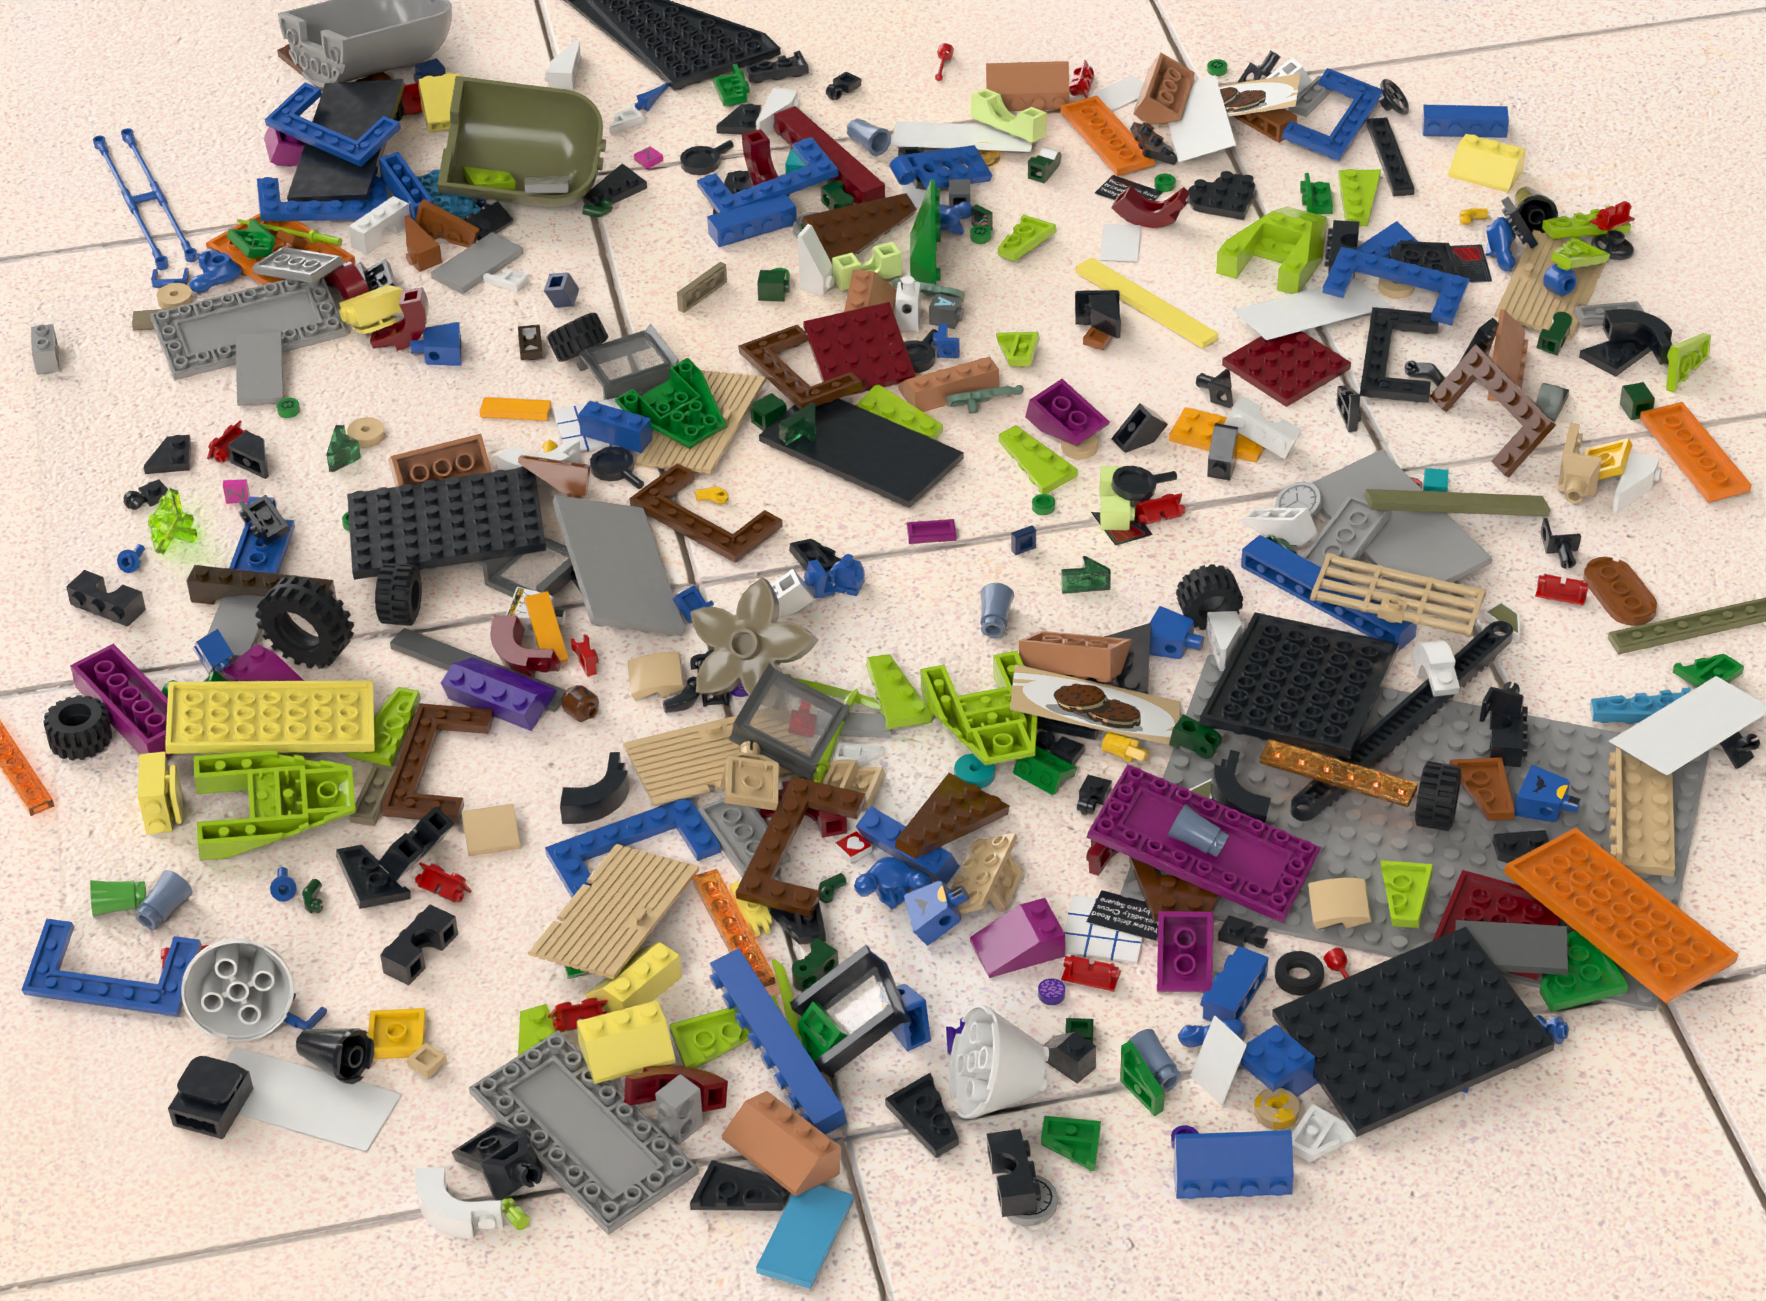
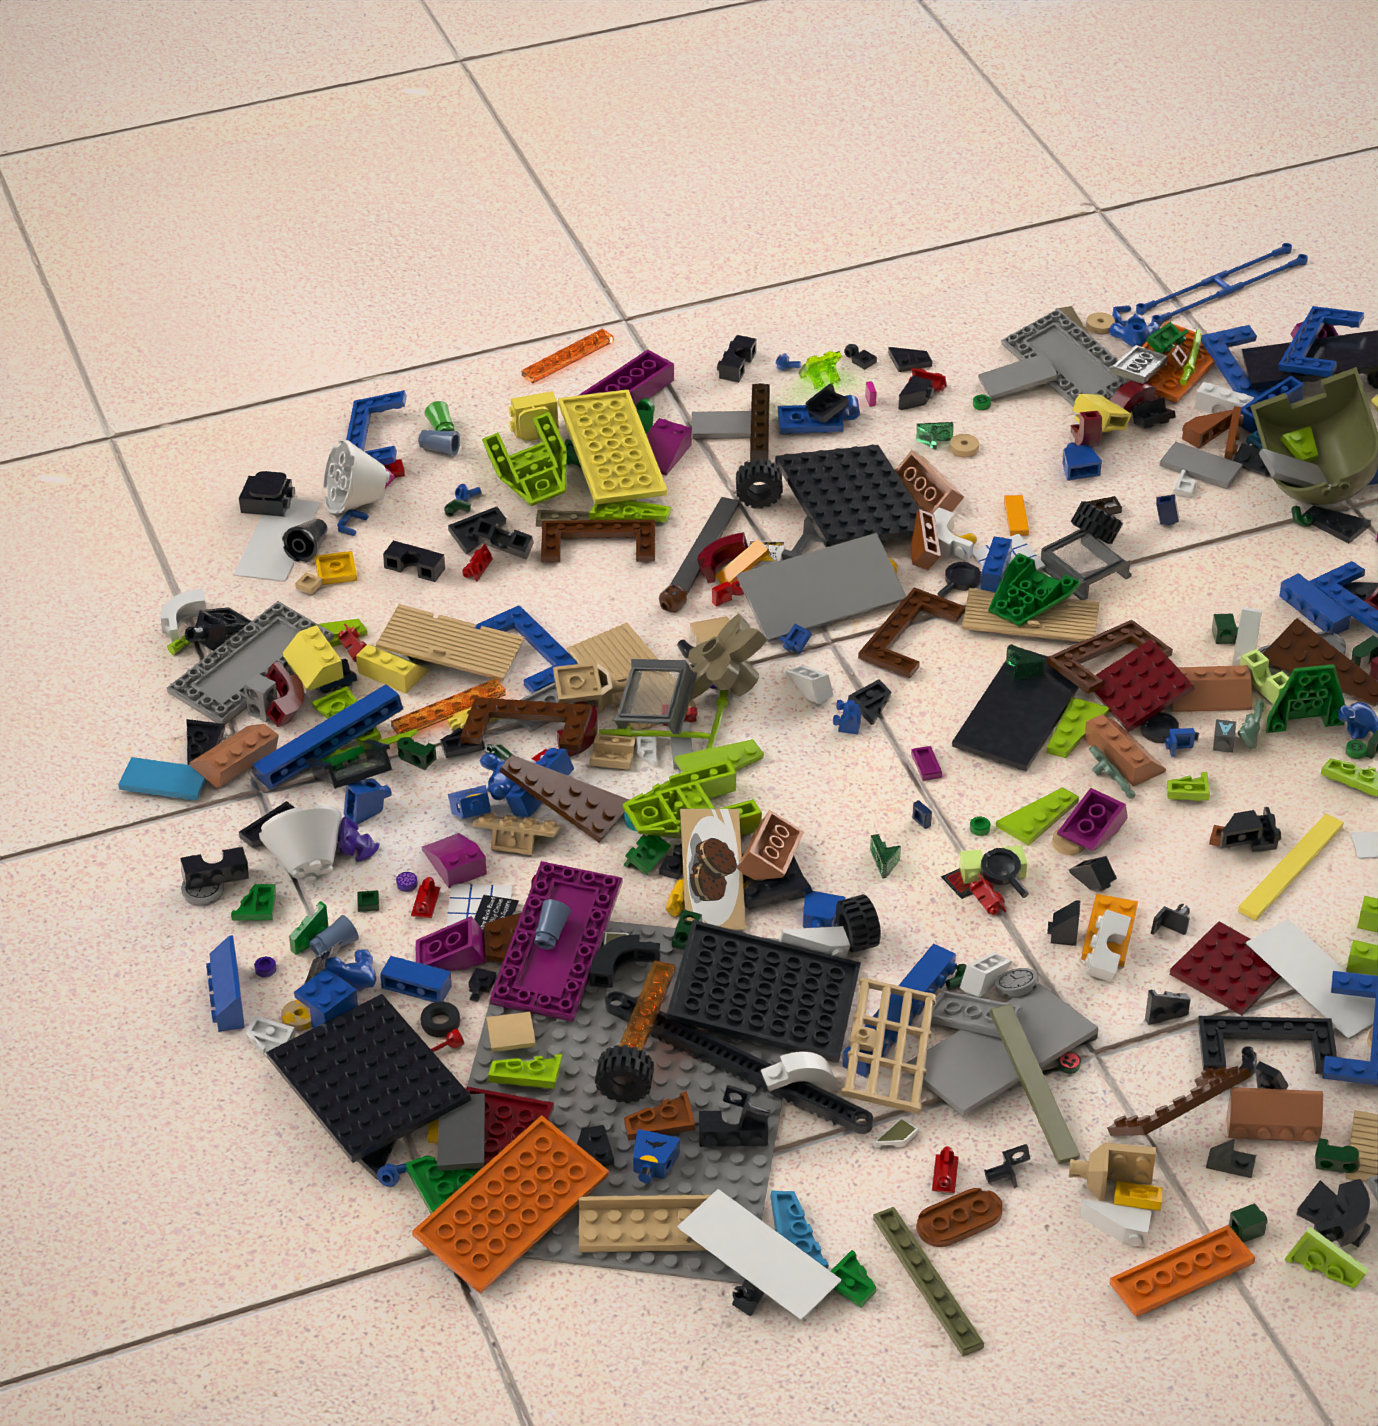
camera: 80 degrees right, 0 degrees up
(45, 349) = (1007, 273): light grey brick -> none
(77, 727) = (594, 367): black tyre -> none
(213, 652) = (670, 407): blue arch -> none
(314, 606) = (705, 439): black tyre -> none
(490, 829) = (534, 575): tan slope -> none
(492, 687) = (673, 553): dark purple slope -> none
(598, 800) = (577, 625): black arch -> none
(701, 287) = (1207, 589): dark tan tile -> none
(713, 494) = (938, 634): yellow arm -> none
(767, 410) = (1047, 644): dark green brick -> none
(816, 578) = (831, 696): blue bracket -> none
(908, 297) = (1217, 705): white torso -> none
(995, 608) = (825, 805): sand blue plant -> none
(1072, 1055) = (337, 893): black slope -> none
(1093, 792) = (631, 887): black plate -> none
(1435, 480) = (1067, 1076): teal brick -> none

